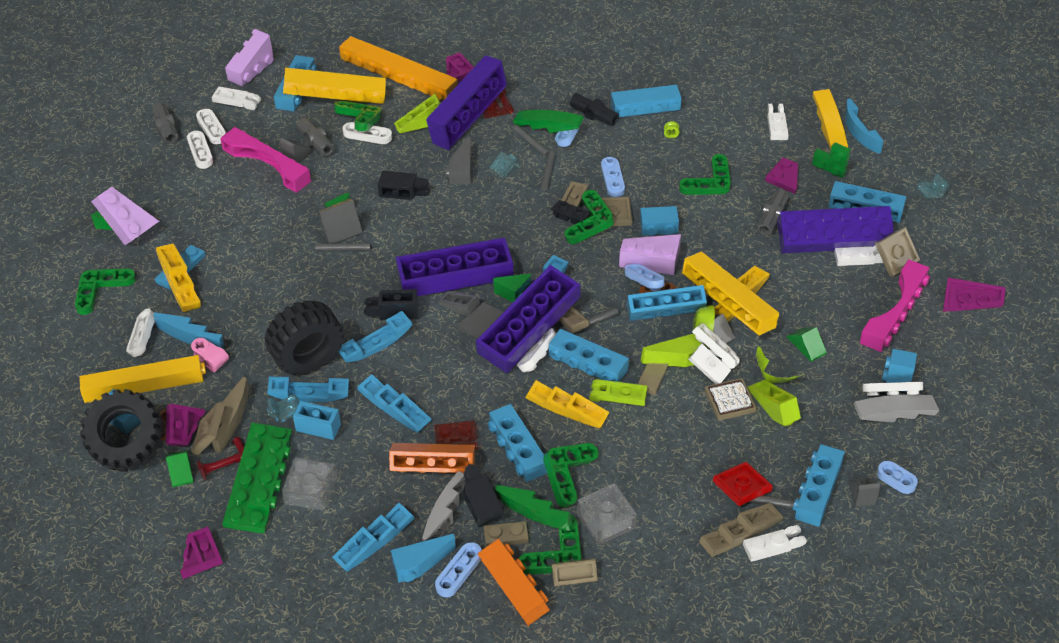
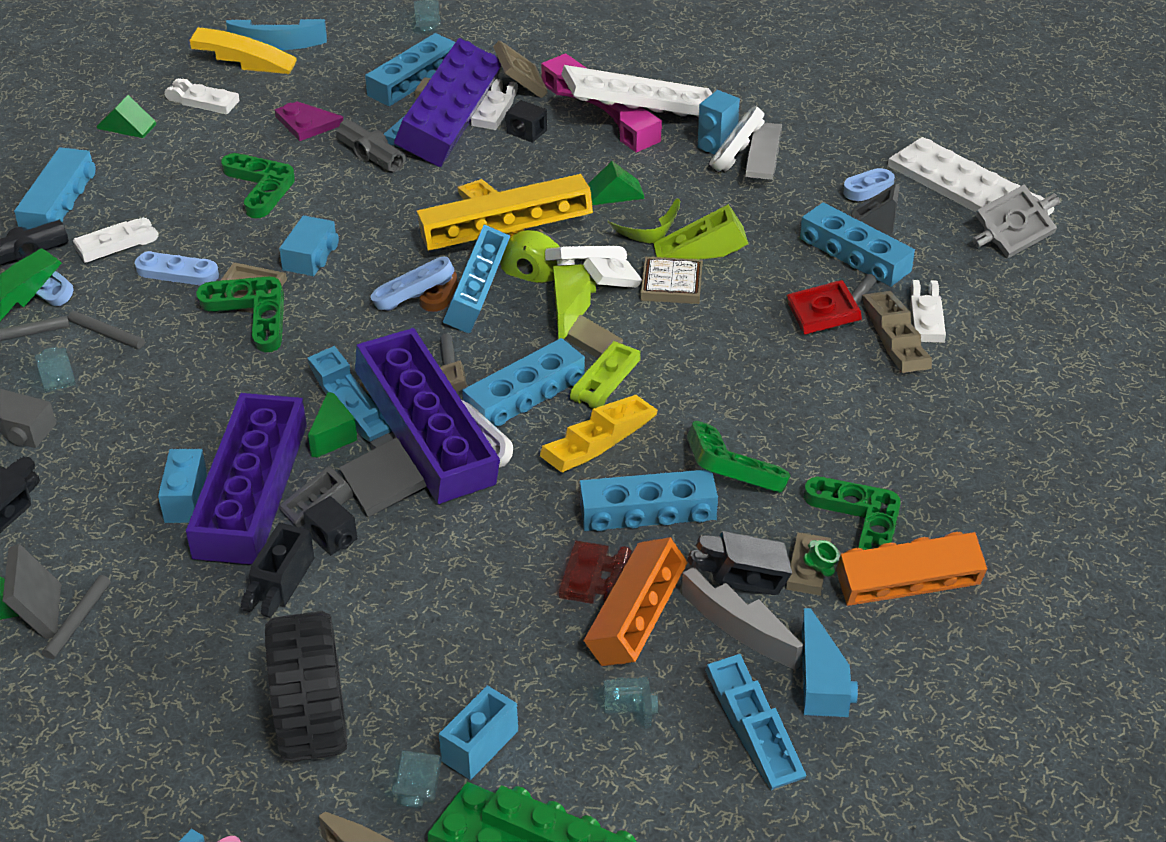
camera: 70 degrees left, 5 degrees down
(308, 392) = (396, 732): dark azure slope -> none
(310, 484) = (611, 777): clear brick -> none
(368, 482) = (631, 696): none -> clear light blue bracket
(376, 341) = (329, 595): dark azure slope -> none
(394, 404) = (480, 633): dark azure slope -> none
(437, 314) = (330, 525): none -> black brick
(438, 241) = (182, 484): none -> dark azure brick
(459, 562) = (852, 620): light blue plate -> none
(496, 528) = (822, 556): none -> green plate
(538, 510) = (780, 515): green slope -> none
(564, 210) = (235, 319): black hinge -> none
(574, 193) = (190, 315): dark tan plate -> none
(574, 572) = (911, 504): dark tan tile -> none
(606, 514) = (830, 439): clear brick -> none
(621, 142) = (115, 239): none -> white hinge
(654, 252) = (369, 263): lavender wedge -> none
(670, 126) = (135, 185): lime bush -> none
(731, 102) = (128, 119): none -> slope
(835, 162) = (329, 69): green plate -> none
(847, 275) = (526, 121): none -> black brick
(897, 570) = (1016, 221): none -> light grey plate
(904, 319) = (634, 91): none -> white plate
(939, 540) = (951, 174): none -> white plate
(971, 295) = (618, 47): magenta wing -> none

